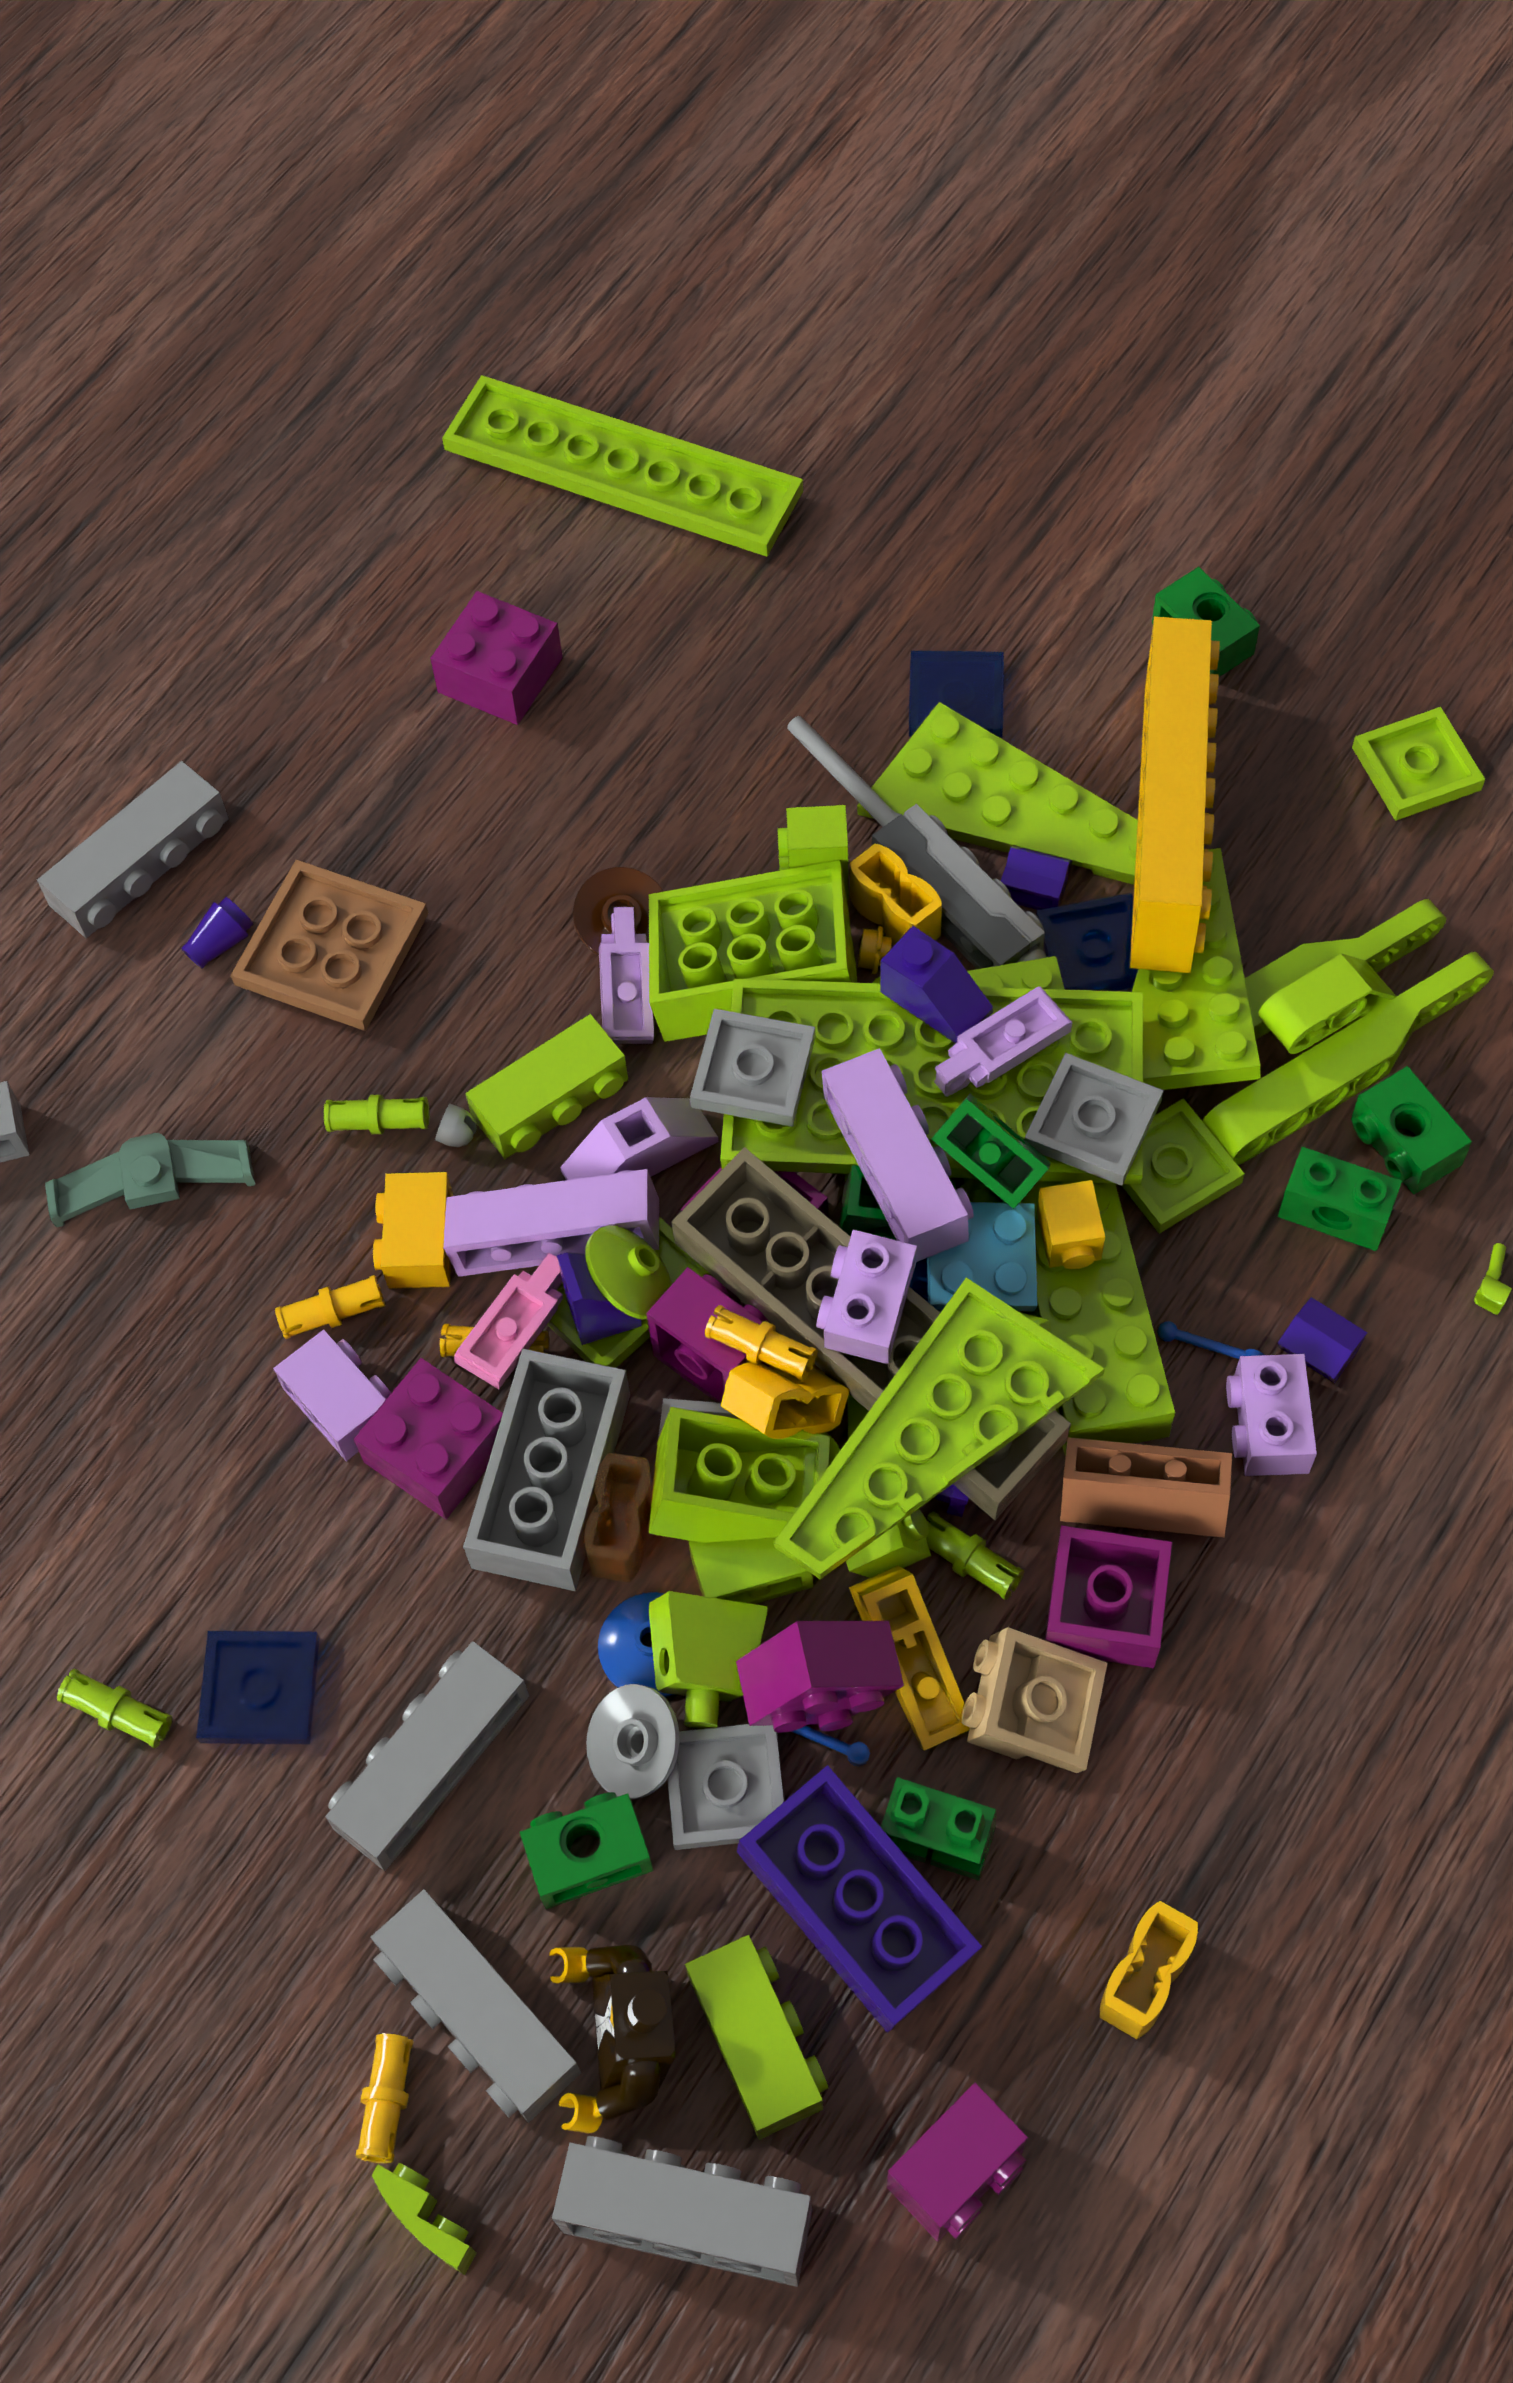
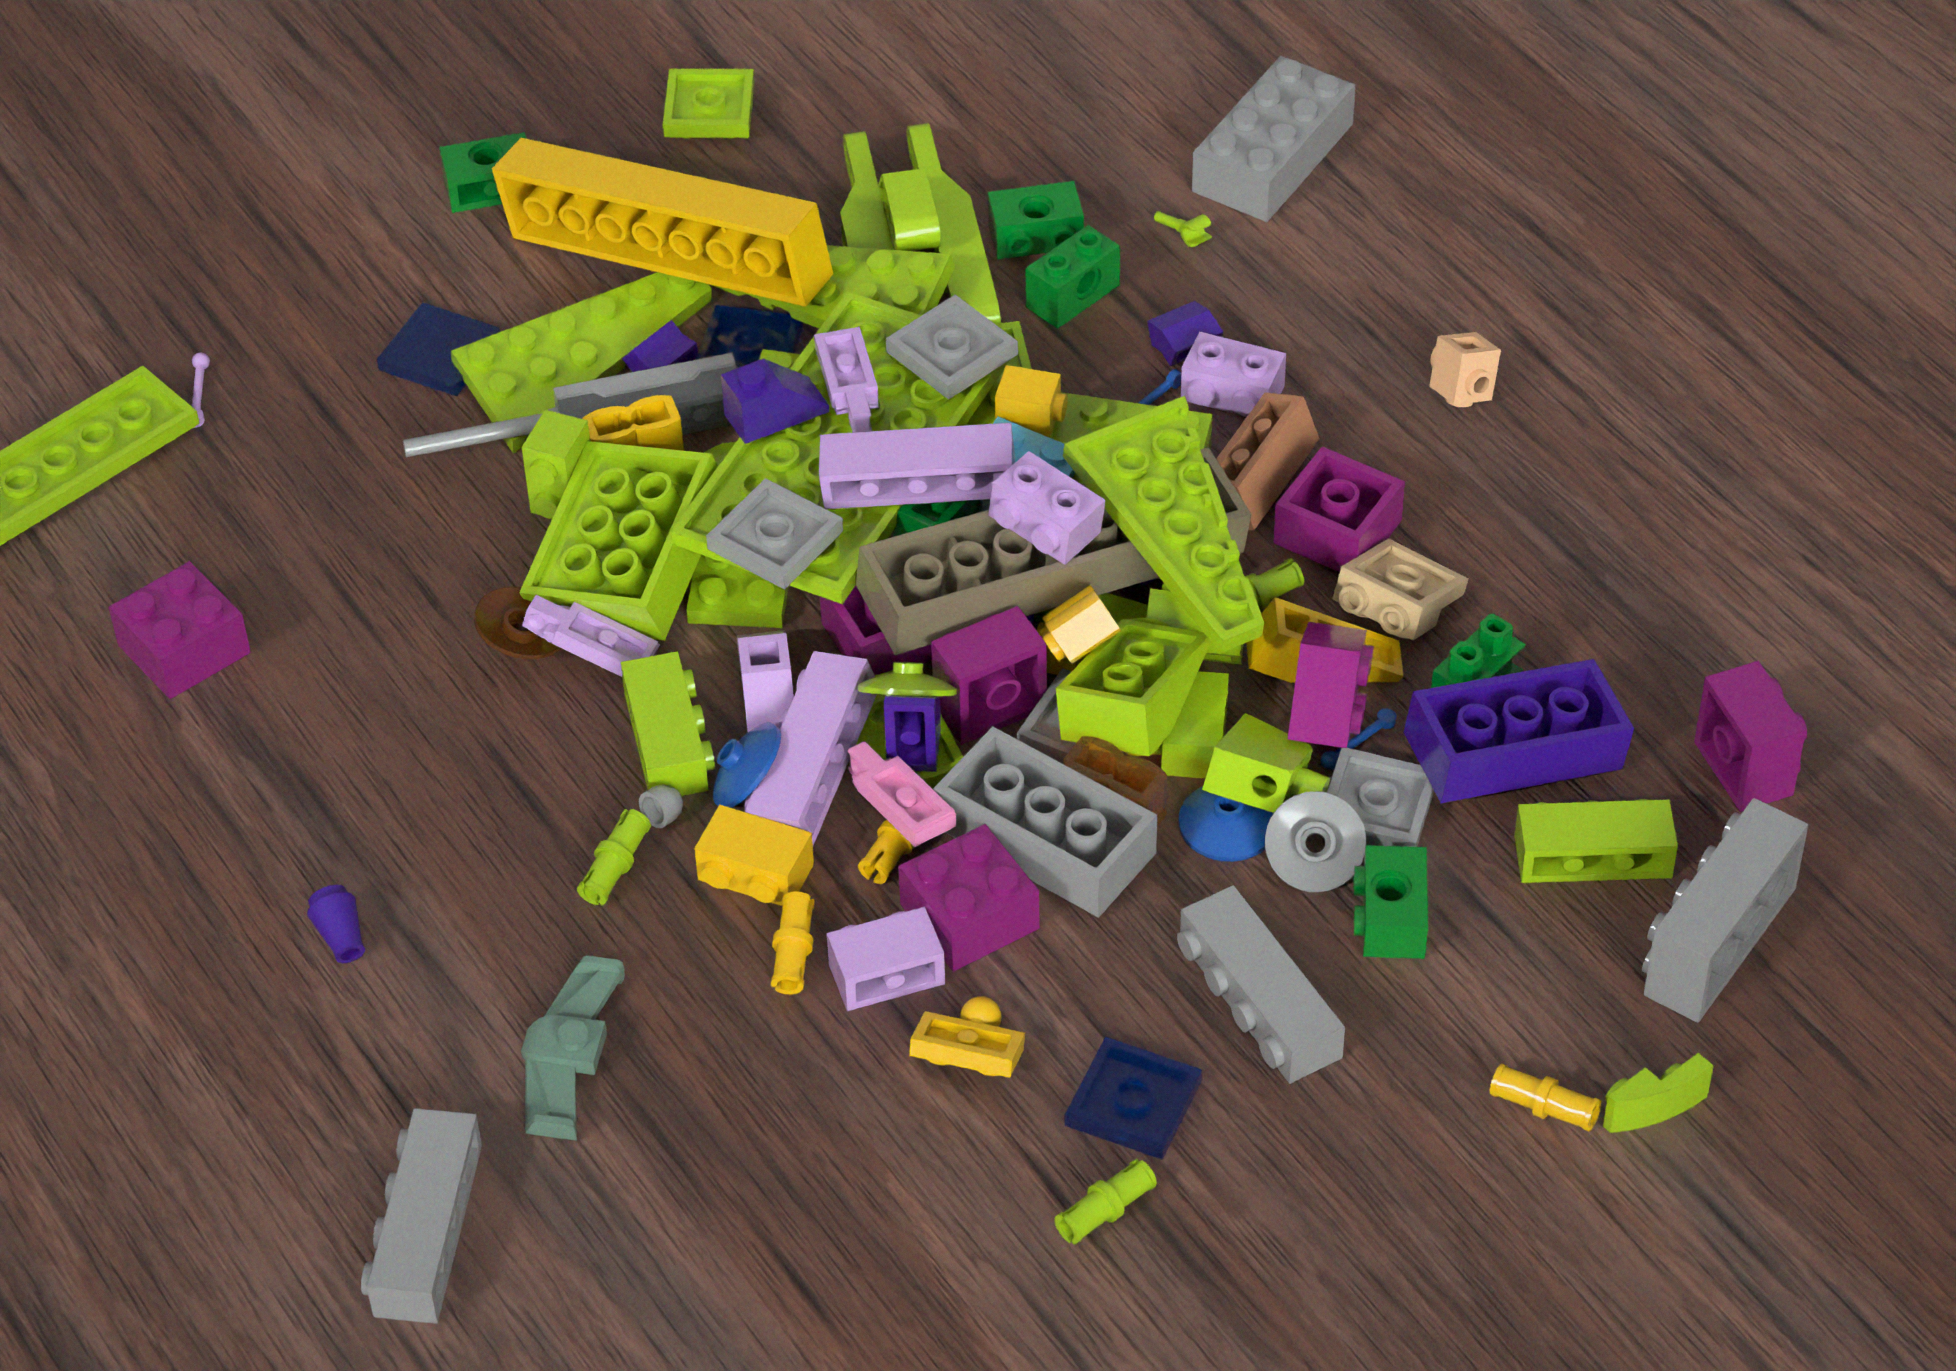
camera: 70 degrees left, 15 degrees down
(133, 849) = (200, 962): light grey brick -> none
(261, 1509) = (971, 1041): none -> yellow plate
(330, 945) = (408, 842): medium nougat plate -> none
(476, 2006) = (1493, 1011): light grey brick -> none
(514, 1172) = (745, 764): none -> blue dish
(631, 2030) = (1559, 904): dark brown torso -> none
(761, 1343) = (1035, 606): yellow pin -> none
(844, 521) = (200, 362): none -> lavender hinge
(991, 1151) = (955, 397): green brick -> none
(1145, 1975) = (1645, 586): yellow brick -> none
(1400, 1652) = (1464, 368): none -> light nougat brick

